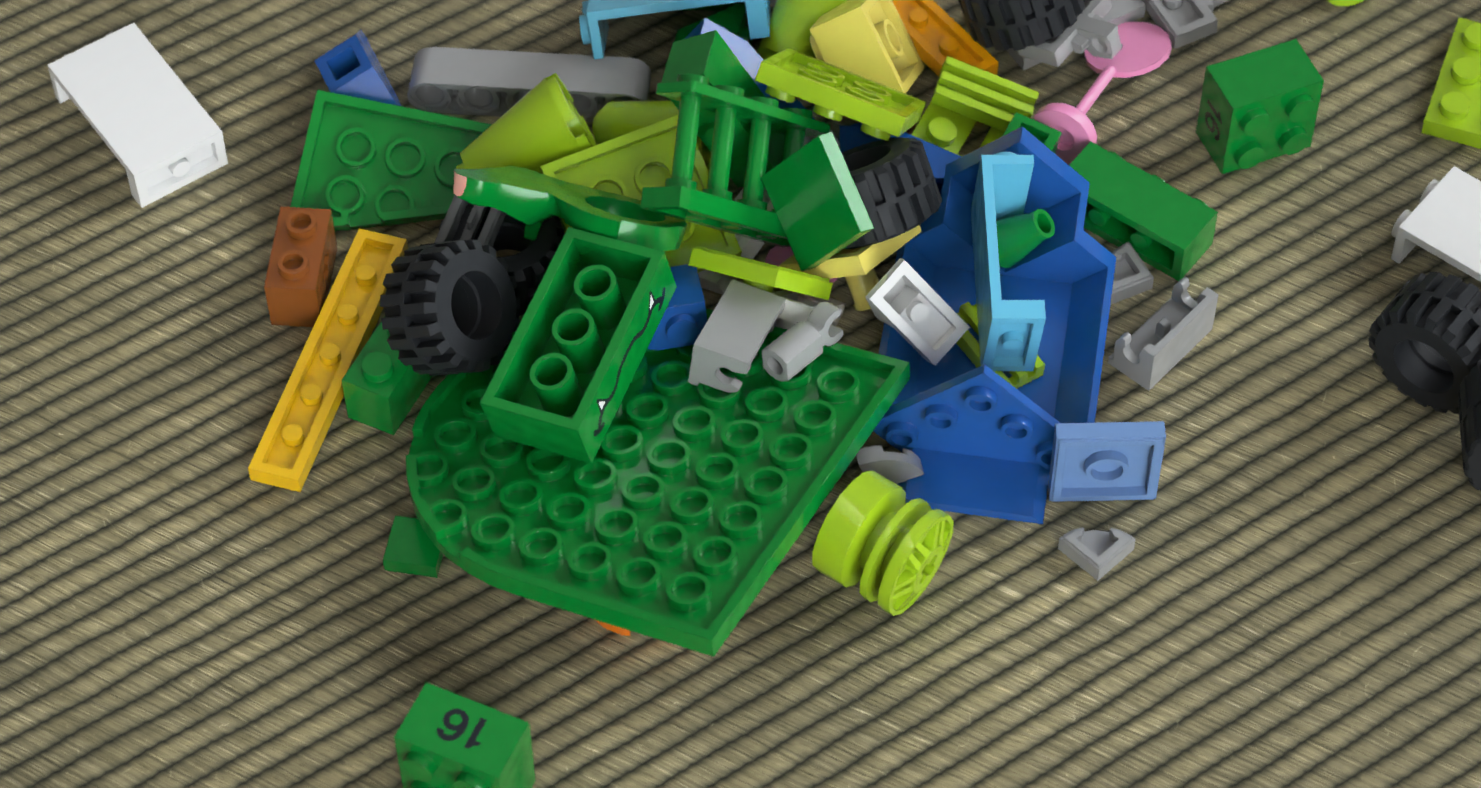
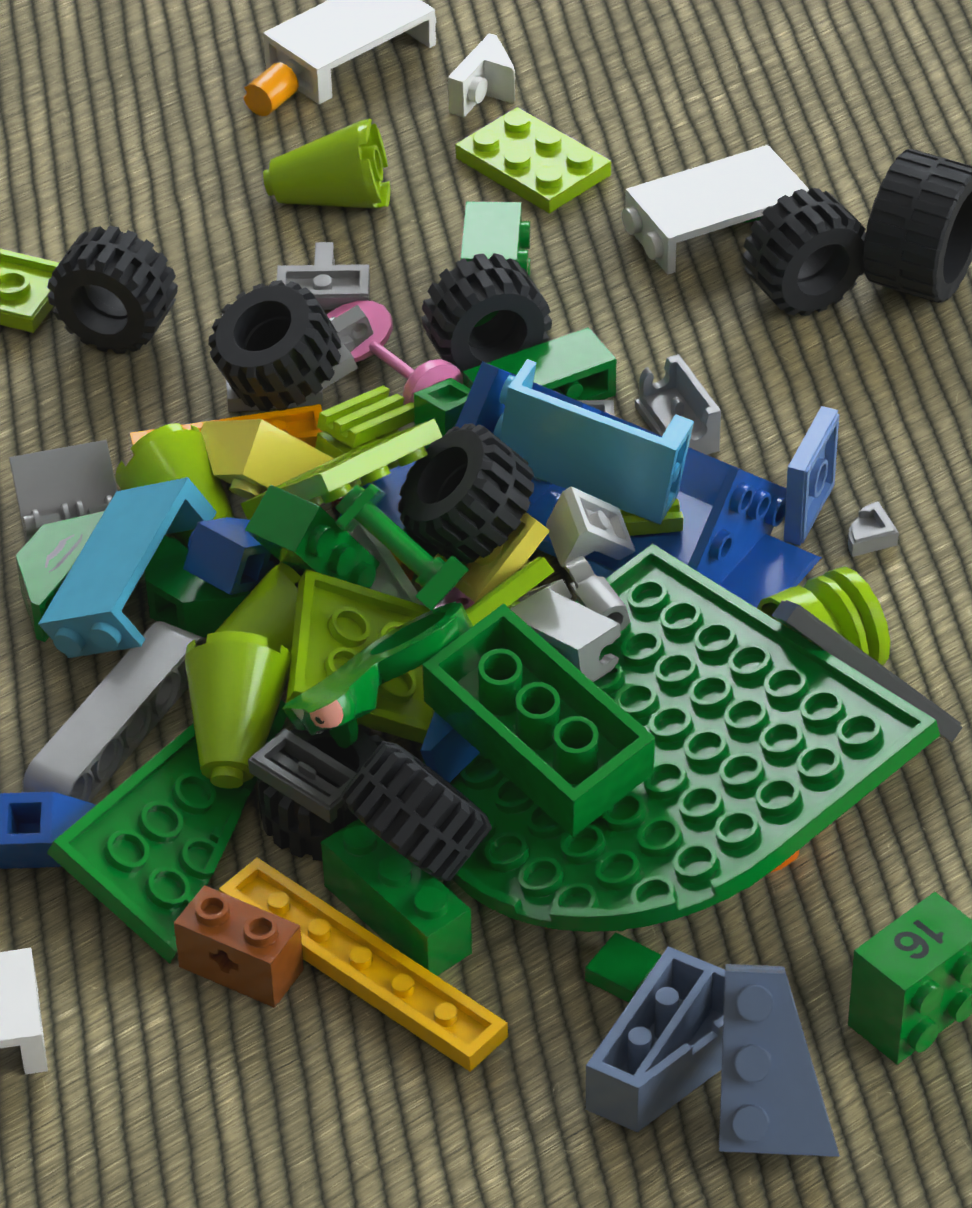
camera: 65 degrees left, 10 degrees down
(285, 671) = (766, 1070): none -> sand blue wedge
(320, 599) = (660, 1043): none -> sand blue wedge
(817, 201) = (482, 509): green tile -> none
(821, 587) = (826, 638): none -> dark grey tile
(1169, 123) = (472, 293): none -> black tyre

